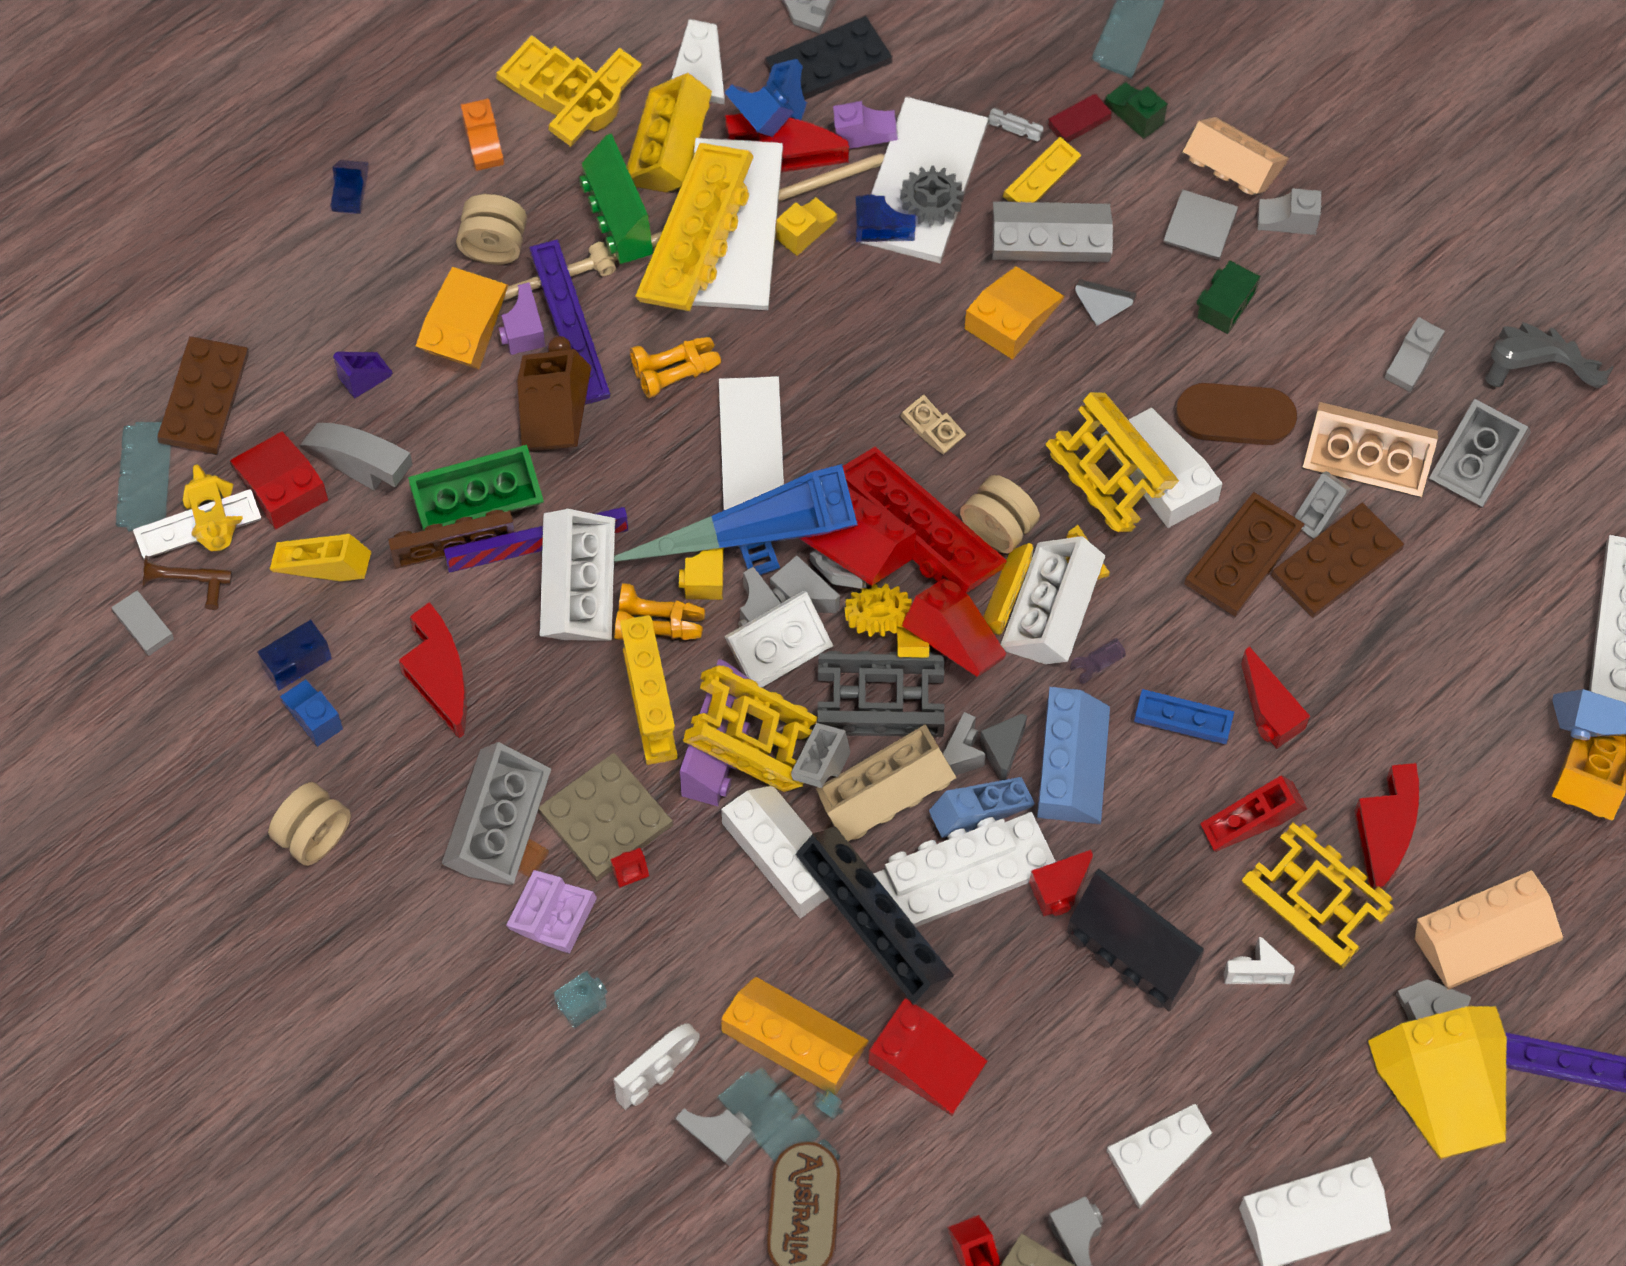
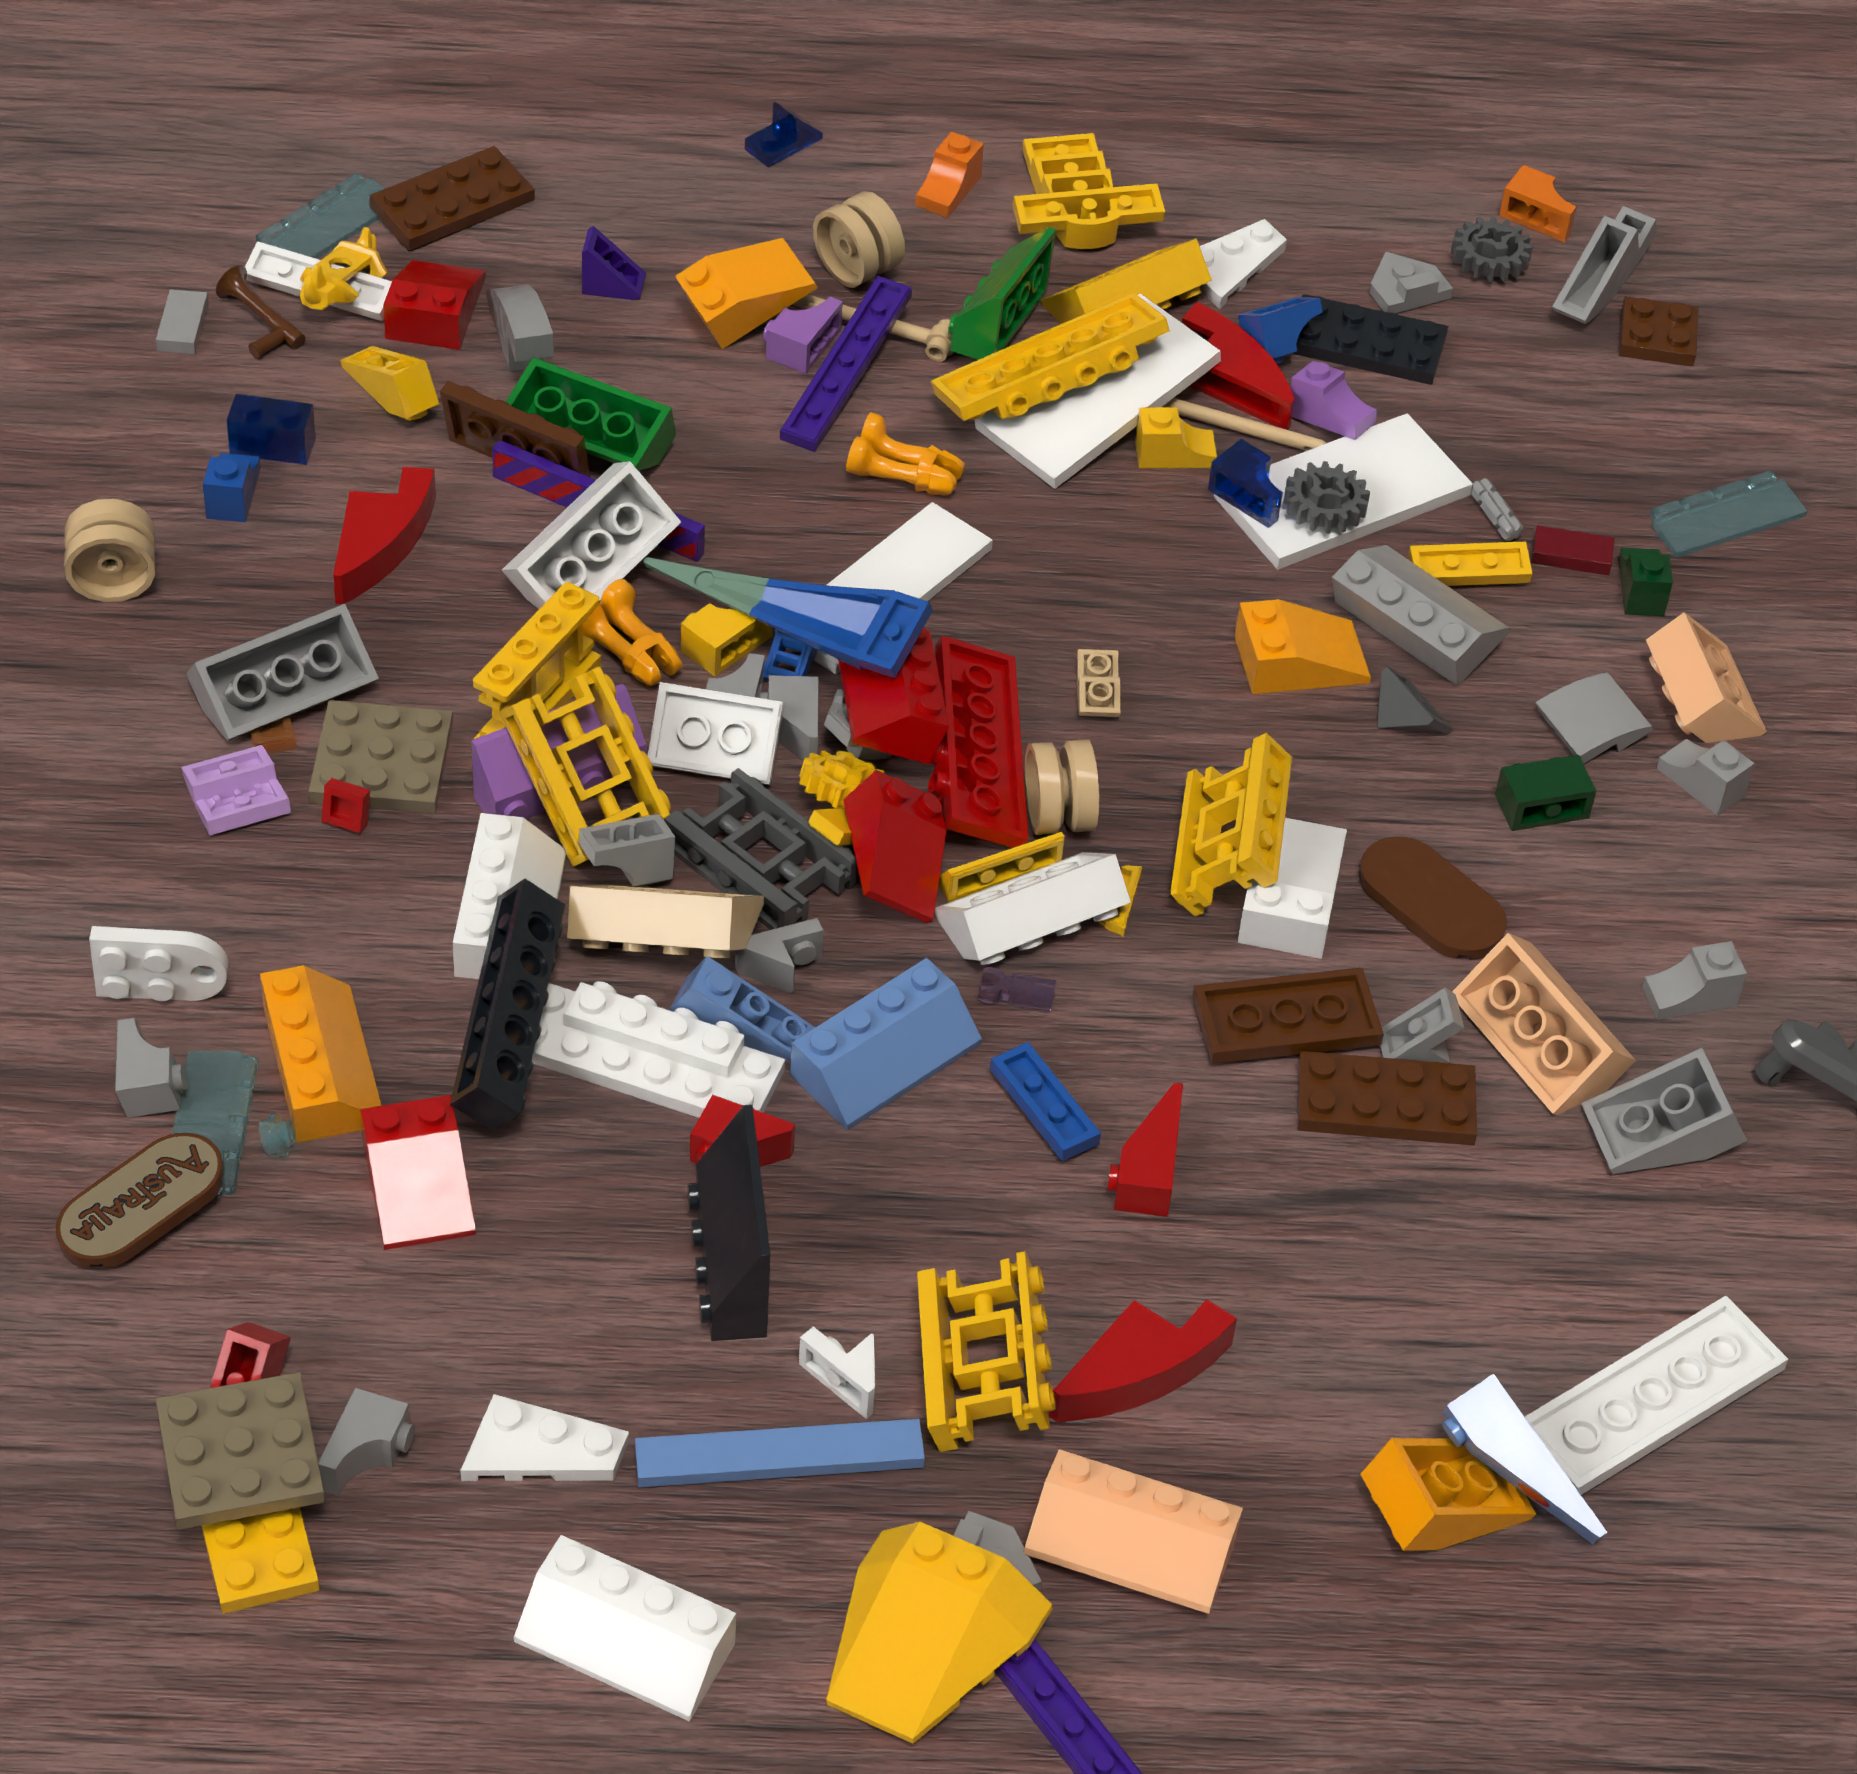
camera: 40 degrees right, 15 degrees down
(552, 396) = (753, 397): reddish brown slope -> none
(581, 998) = (167, 871): clear light blue brick -> none
(763, 109) = (1232, 308): blue arch -> none
(1002, 742) = (831, 982): dark grey slope -> none
(1254, 813) = (1000, 1231): red slope -> none
(1274, 1045) = (779, 1453): none -> medium blue tile

